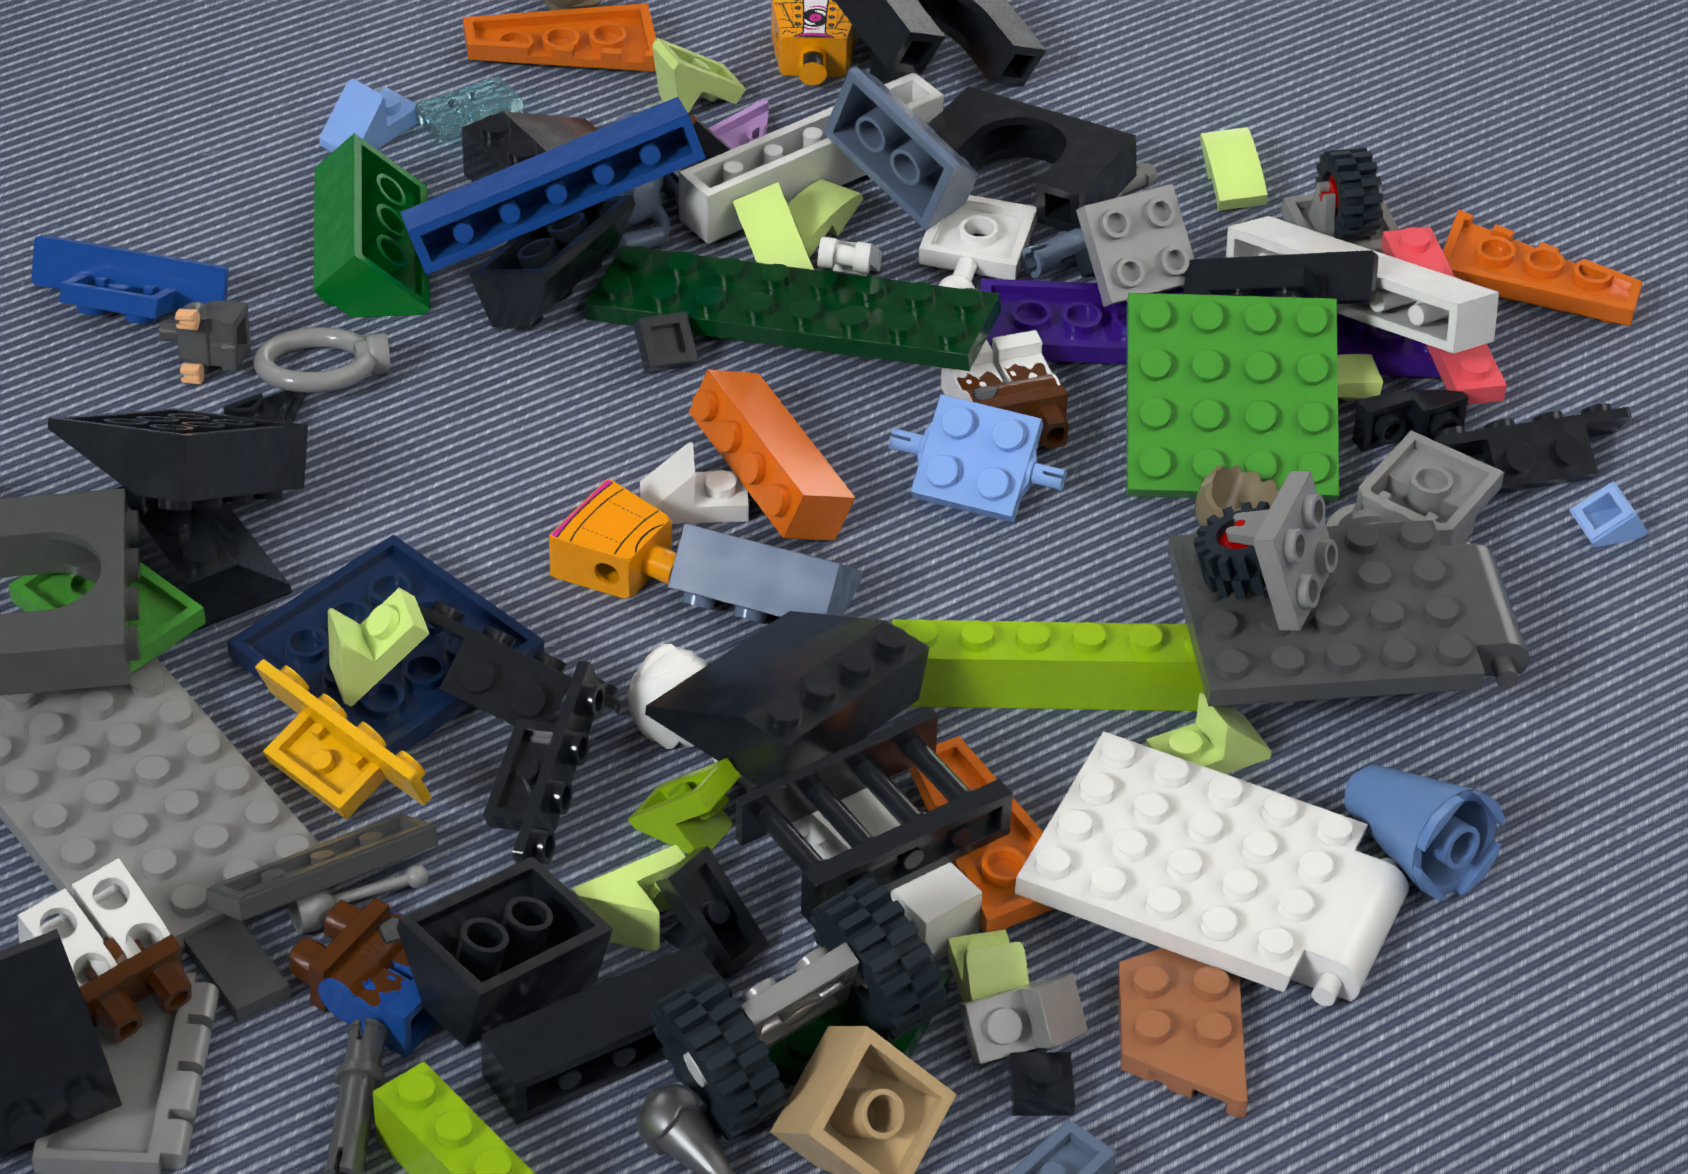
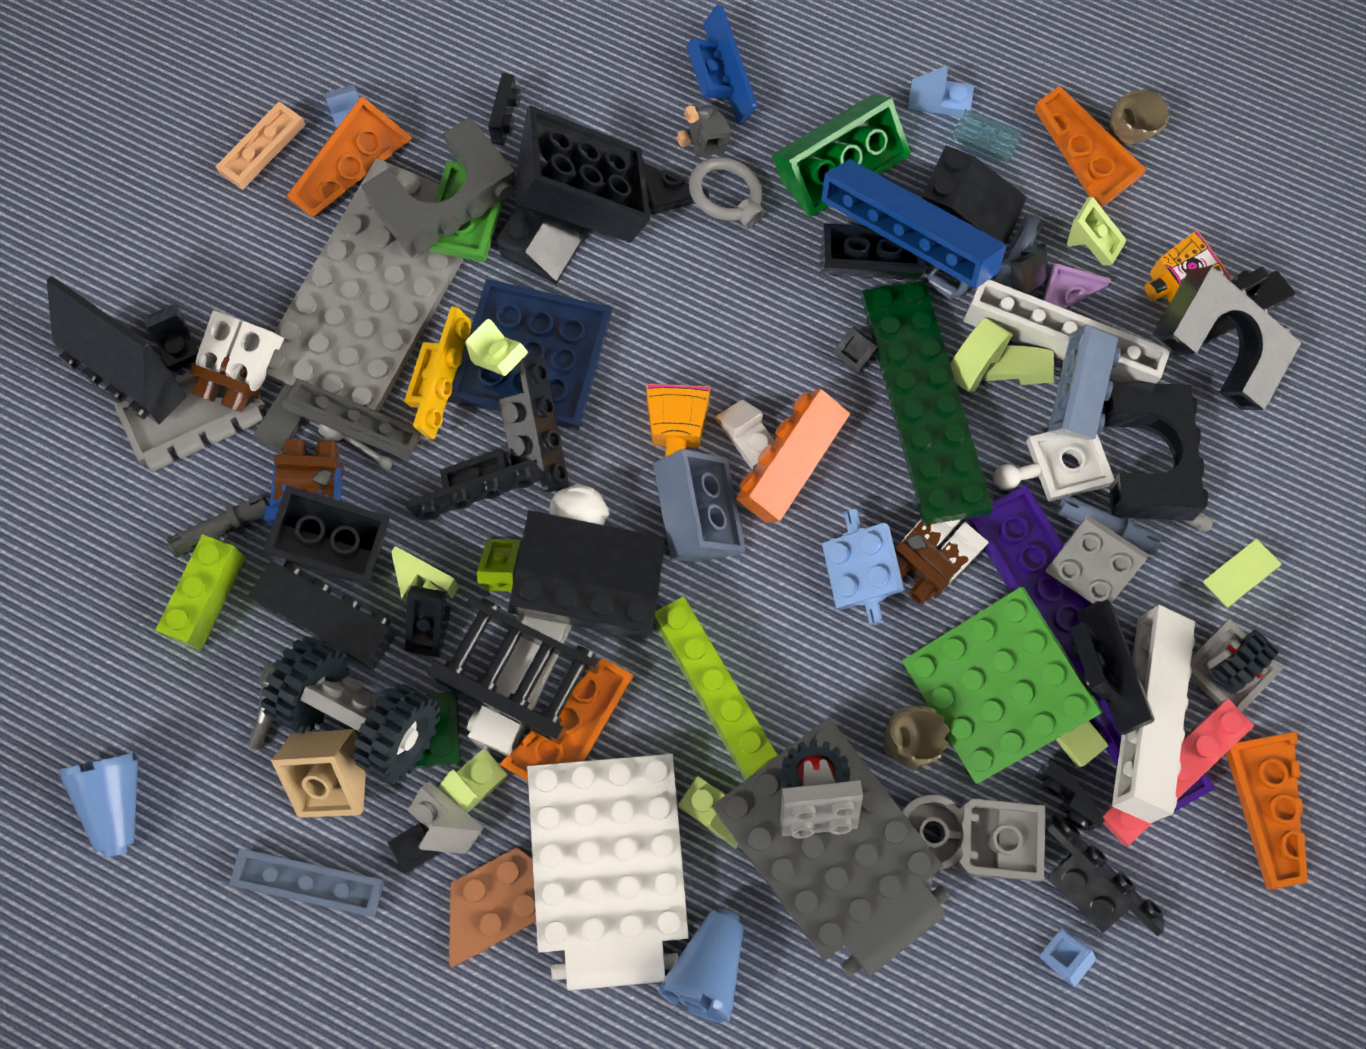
camera: 60 degrees right, 30 degrees up
(848, 256) = (981, 405): white plate -> none

